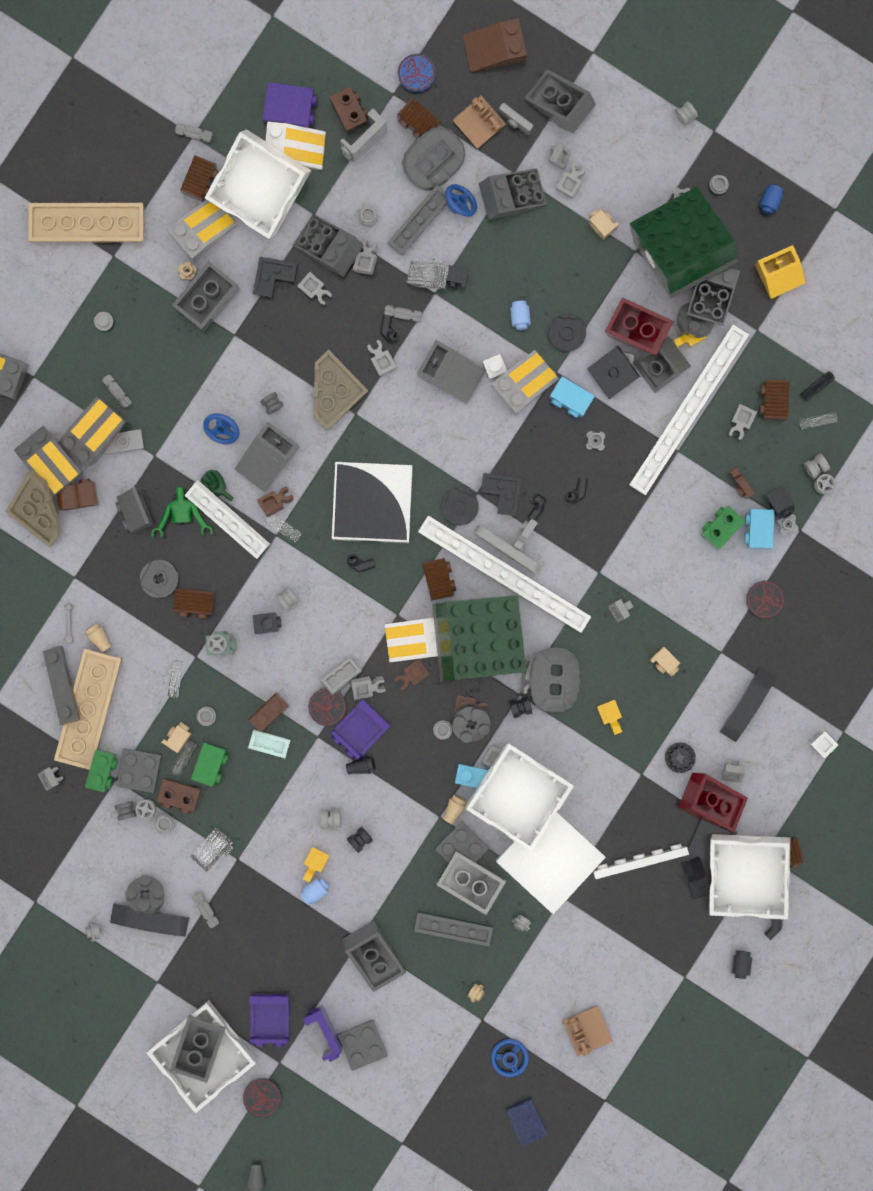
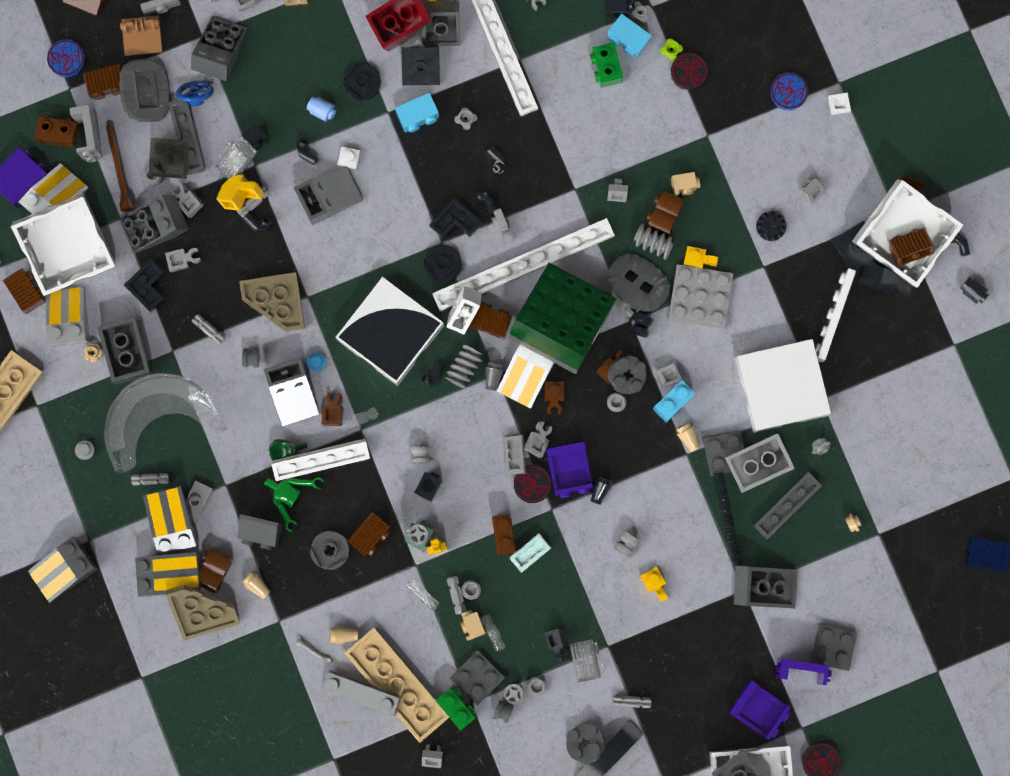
camera: 55 degrees left, 5 degrees down
(90, 537) = (256, 585): none -> tan cone
(173, 342) = (147, 400): none -> clear windscreen
(179, 795) = (522, 657): reddish brown brick -> none
(194, 707) = (456, 595): none -> light grey axle
(209, 764) = (513, 613): green brick -> none
(211, 816) = (557, 642): none -> black plate
(220, 664) = (436, 547): none -> yellow plate
(223, 426) = (241, 410): blue piece -> none
(272, 350) = (207, 328): none -> light grey axle
(305, 459) = (316, 362): none -> dark azure plate
(314, 891) = (678, 599): light blue brick -> none
(330, 210) = (126, 203): none -> reddish brown piece
(359, 840) = (661, 532): black wheel -> none
(382, 361) = (280, 244): light grey plate -> none
(384, 584) = (464, 366): none -> light grey piece
(388, 913) = (732, 532): none -> black piece
(390, 218) = (168, 158): none -> clear smoke slope
(394, 613) = (493, 375): none -> dark grey cone
(401, 293) = (236, 190): none -> yellow brick
(430, 552) = (464, 310): none -> white brick
(474, 325) = (304, 152): none -> black arm
(507, 549) = (504, 248): light grey beam -> none
(515, 1071) = (932, 532): blue piece -> none
(519, 796) = (715, 373): white tile -> none
(524, 382) = (378, 143): light grey slope -> none
(579, 739) = (700, 297): none -> light grey plate
(587, 1031) = (946, 453): medium nougat hinge -> none
(598, 669) = (653, 241): none -> light grey piece
(629, 662) = (665, 213): none -> reddish brown brick
(713, 801) = (825, 223): dark red slope -> none
(740, 887) = (911, 246): none -> reddish brown brick
(743, 487) = (587, 27): reddish brown plate -> none
(748, 704) = (766, 142): black slope -> none
(777, 576) = (670, 43): none -> lime plate
(806, 695) = (789, 91): none -> tile

